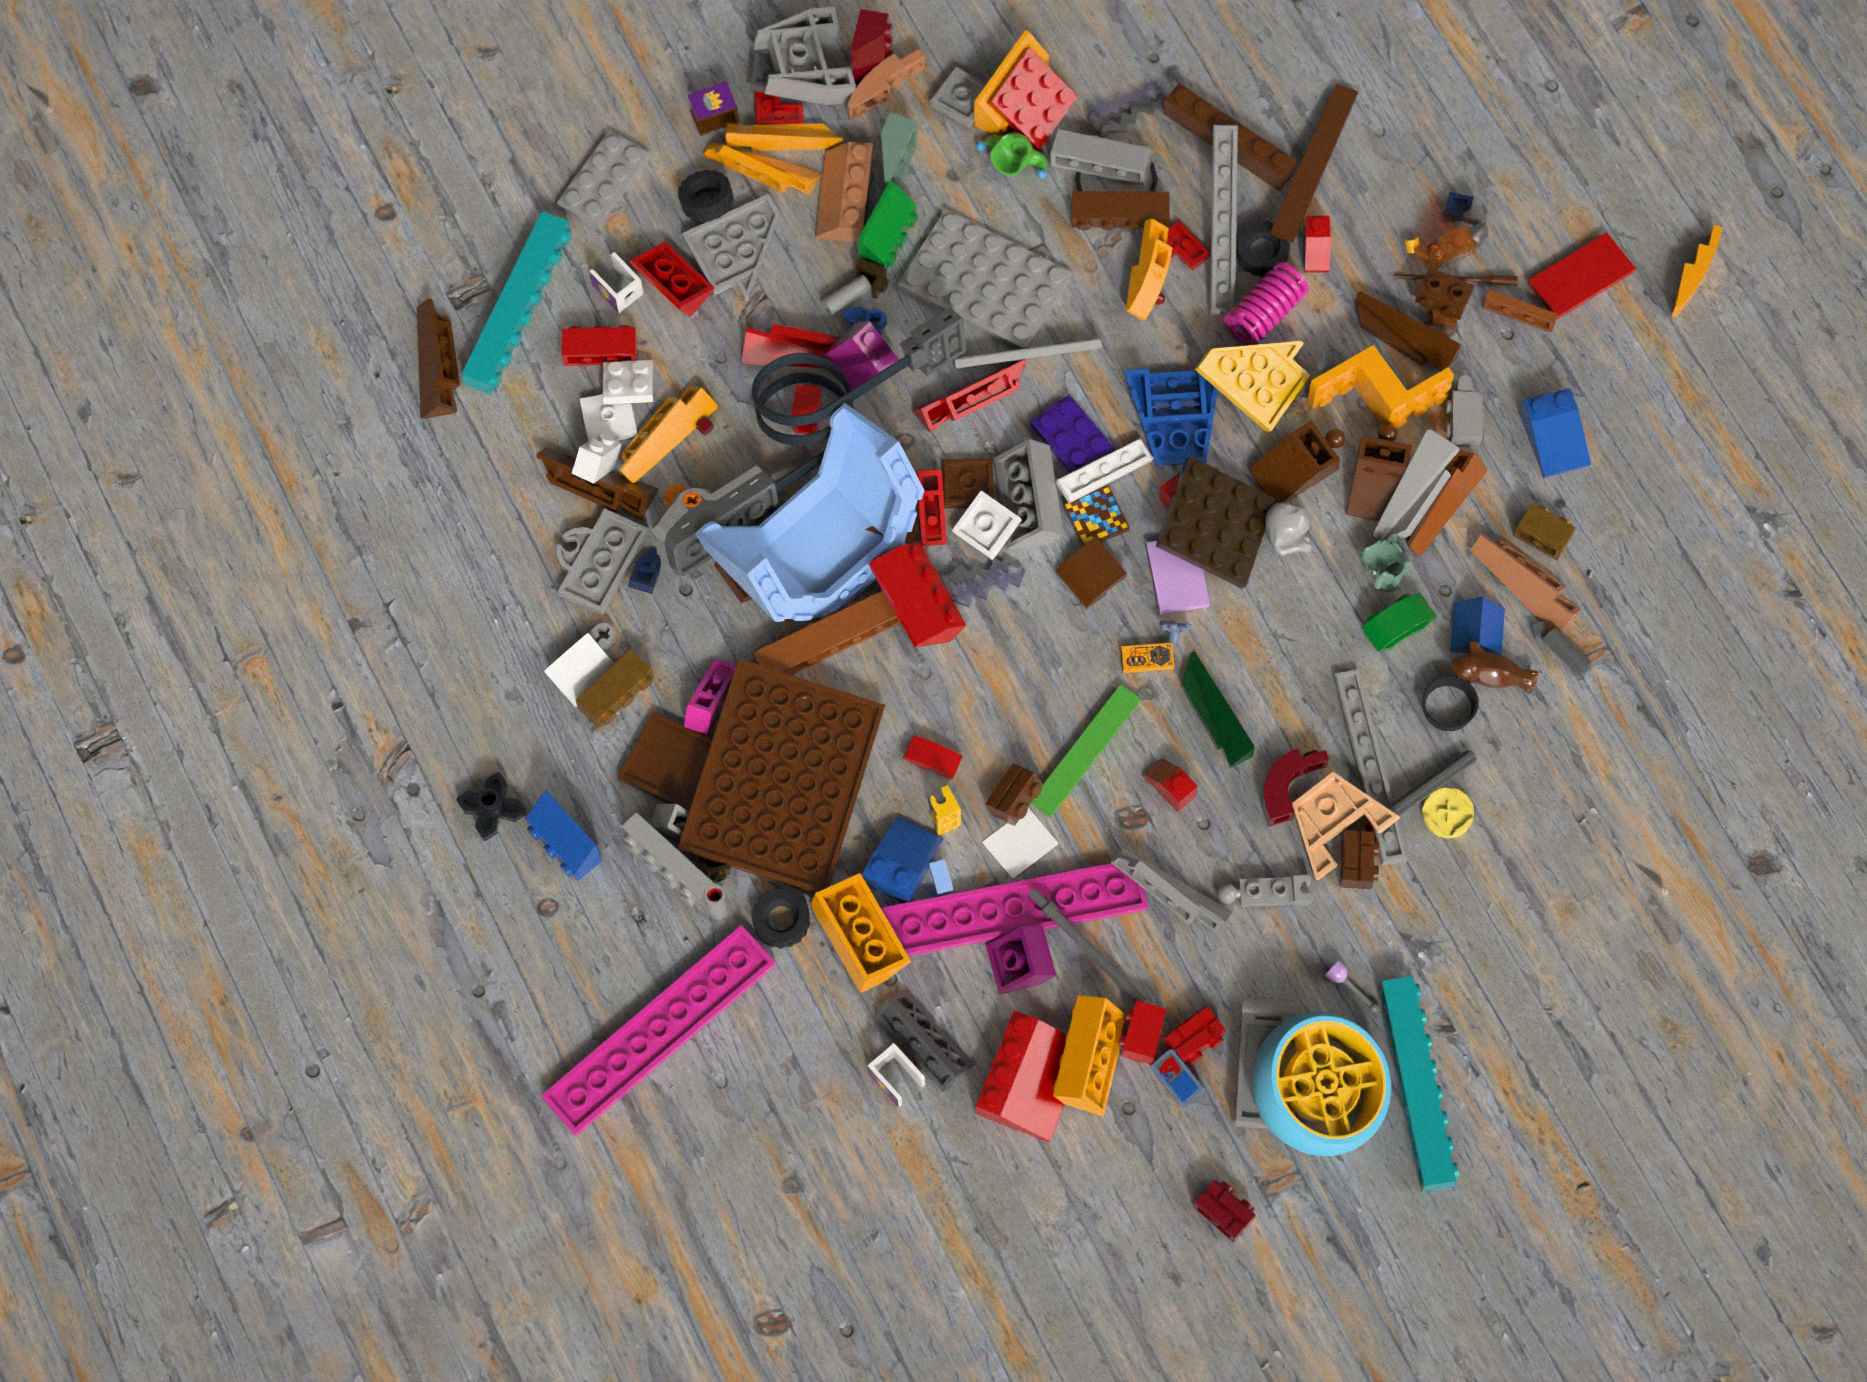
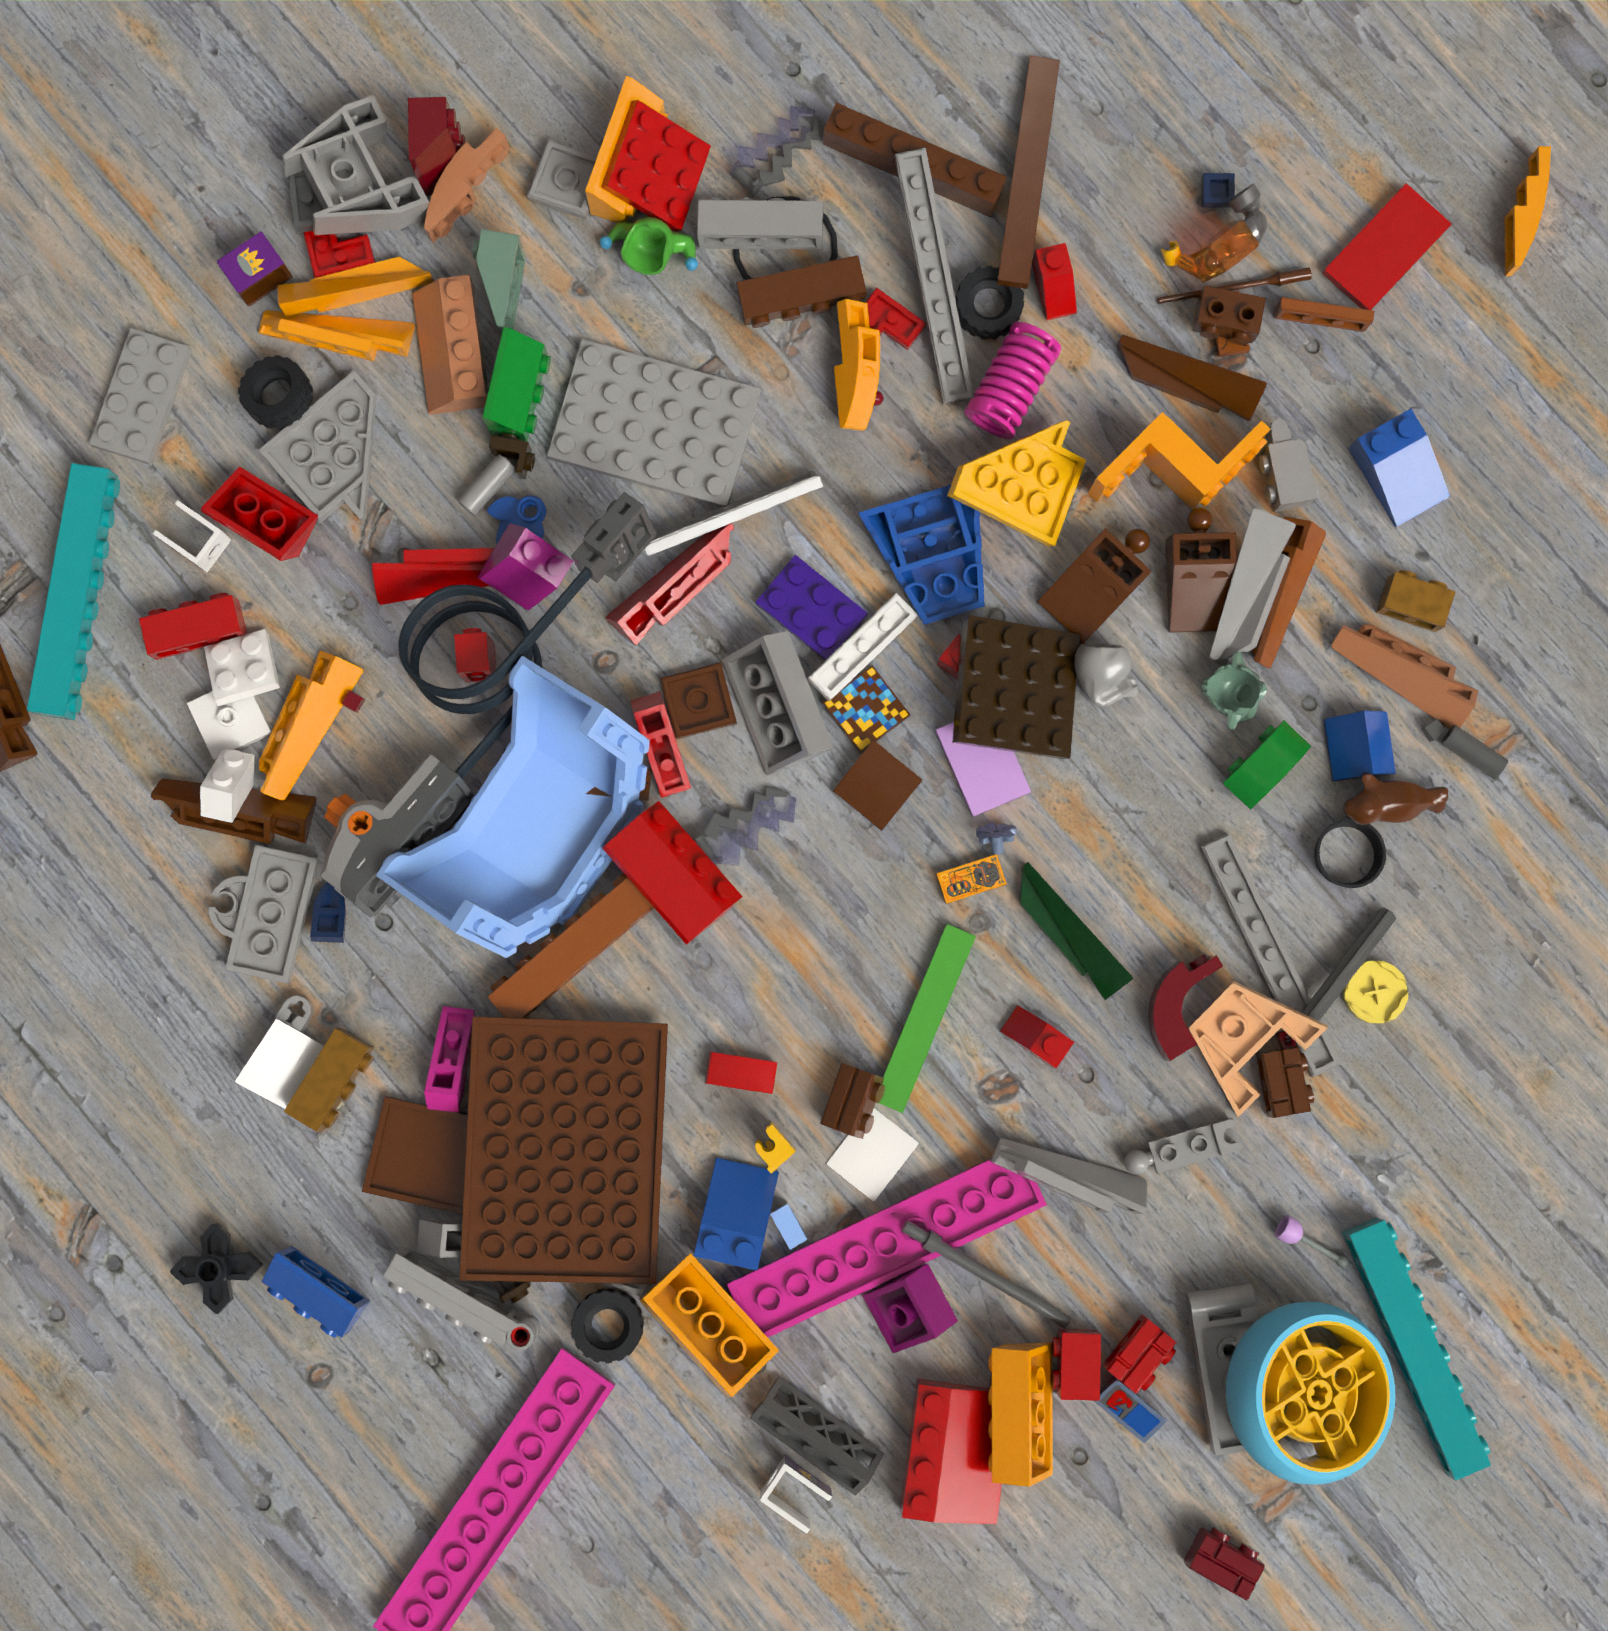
camera: 20 degrees left, 15 degrees up
(986, 525) = (735, 755): white plate -> none

